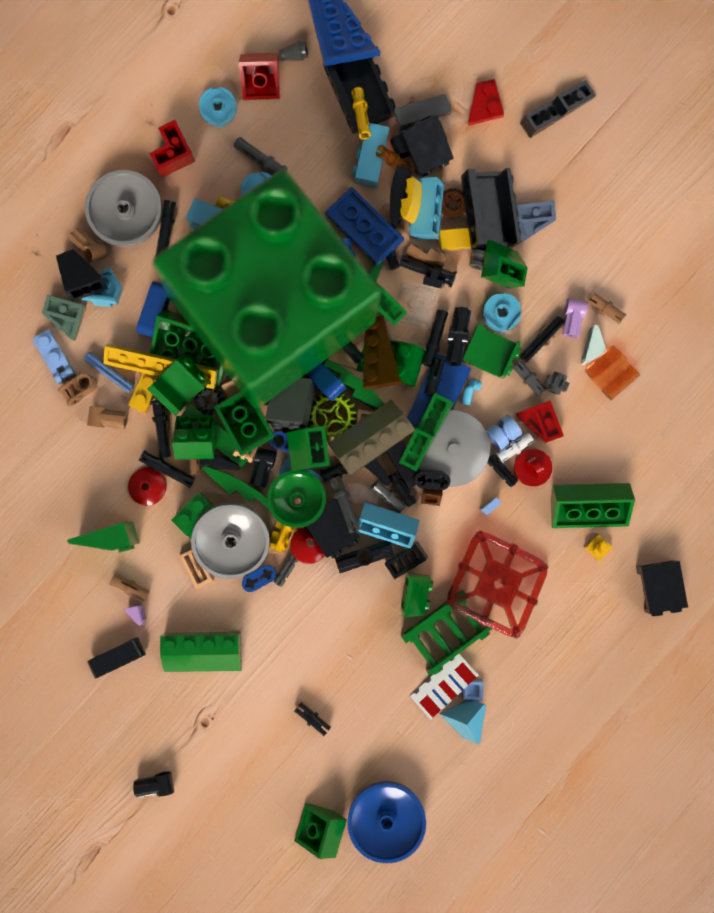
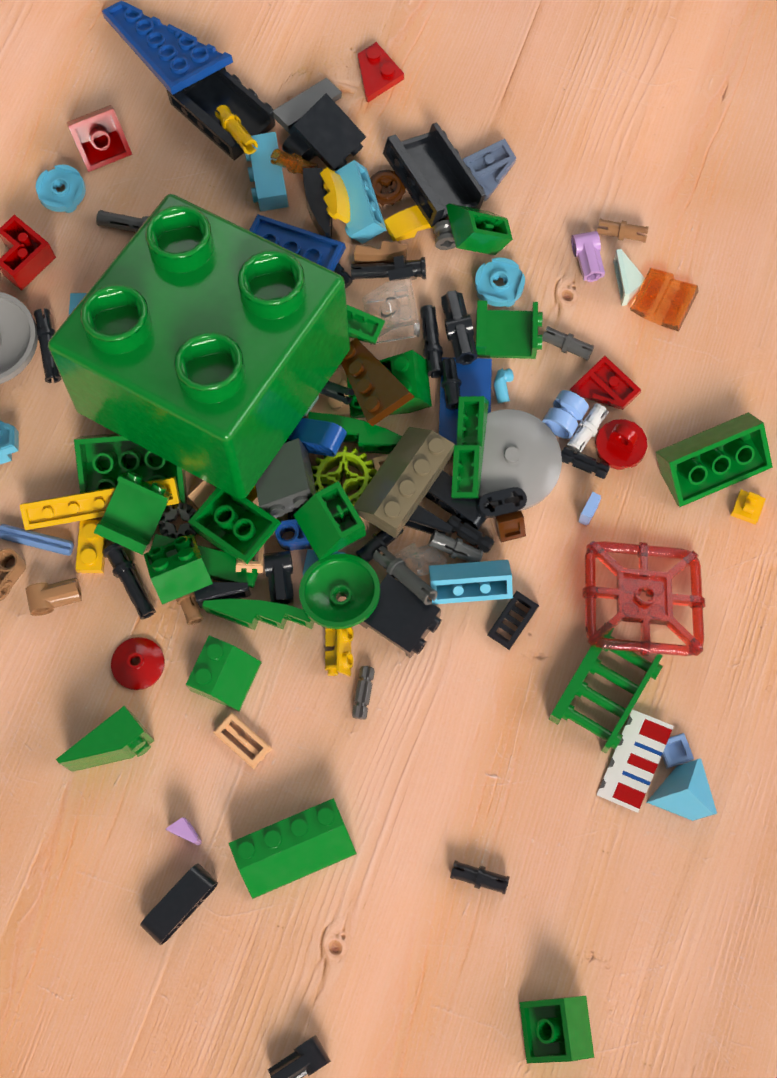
camera: 20 degrees left, 15 degrees down
(129, 587) = (162, 801): medium nougat pin -> none
(154, 304) = (66, 426): blue beam -> none
(167, 469) = (145, 627): black pin -> none
(225, 556) = (300, 686): light grey dish -> none
(256, 574) = (326, 716): blue beam -> none
(294, 52) = (131, 98): dark grey cone -> none
(302, 551) = (376, 659): red dish -> none
(377, 552) = (470, 623): black piece -> none
(386, 822) = (642, 975): blue dish -> none
(415, 594) = (543, 651): green slope -> none
(538, 343) = (562, 294): black axle -> none
(556, 383) = (603, 334): dark grey gear -> none
(557, 109) = (467, 41): black slope -> none

